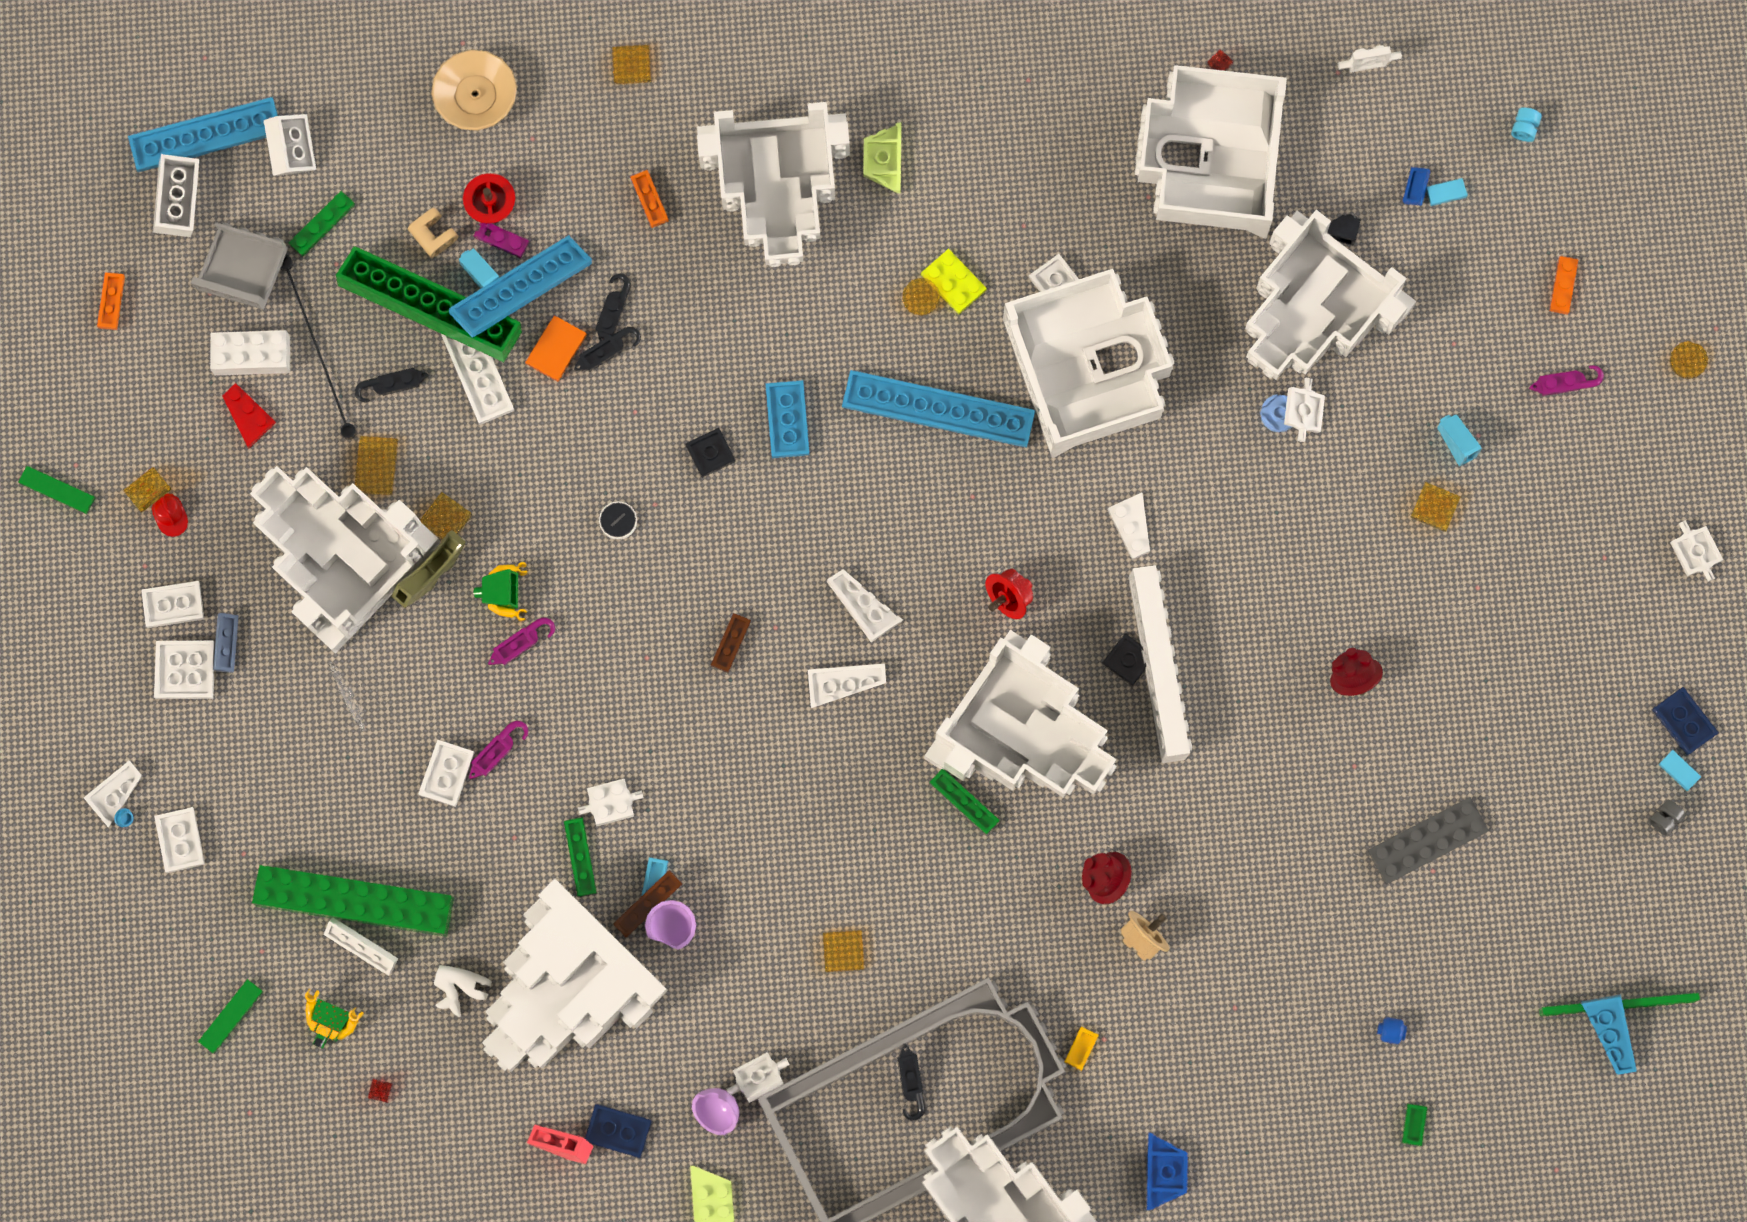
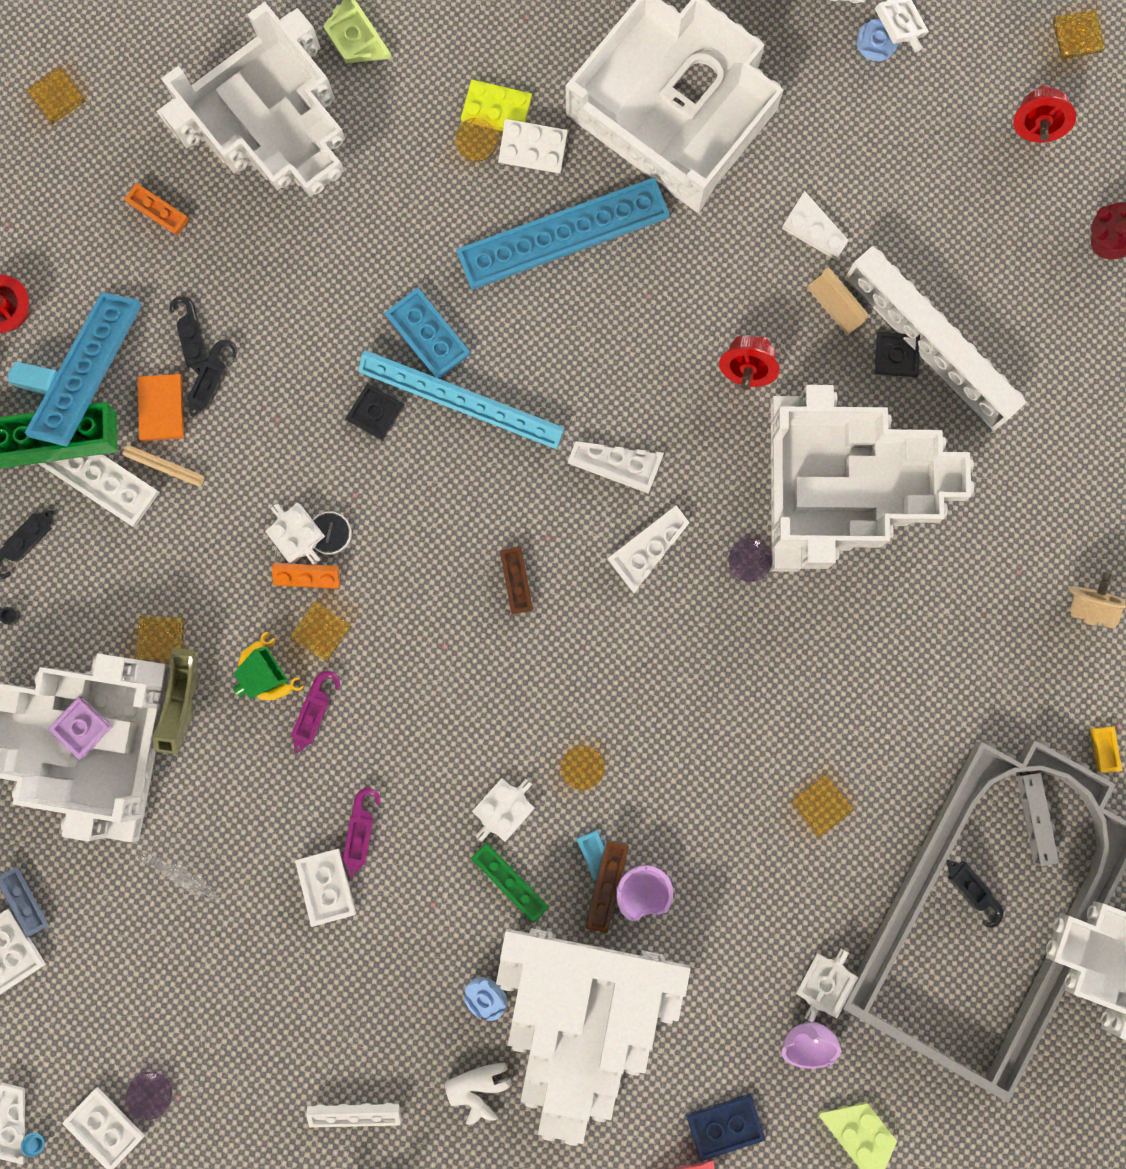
camera: 30 degrees left, 5 degrees up
(226, 838) = (149, 1096): none -> clear purple dish
(349, 544) = (80, 728): none -> lavender tile
(353, 900) = (315, 1076): green brick -> none
(376, 465) = (58, 631): clear yellow tile -> none
(502, 239) = (39, 337): magenta plate -> none
(508, 925) = (485, 998): none -> light blue tile
(530, 393) = (163, 465): none -> tan axle
(564, 587) = (320, 631): none -> clear yellow plate
(580, 540) = (305, 575): none -> orange plate
(592, 504) = (295, 534): none -> white plate
(688, 810) = (582, 767): none -> clear yellow tile
(779, 484) = (460, 399): none -> medium azure plate
(913, 739) = (750, 560): none -> clear purple dish
(960, 329) = (533, 146): none -> white plate
(964, 801) = (839, 587): green plate -> none
(1000, 1055) = (1041, 829): none -> light grey piece
(1052, 274) = (584, 41): white plate -> none
(1106, 876) = (1026, 570): dark red piece -> none
(1109, 592) = (838, 301): none -> tan panel
(1359, 551) = (1044, 115): none -> red piece

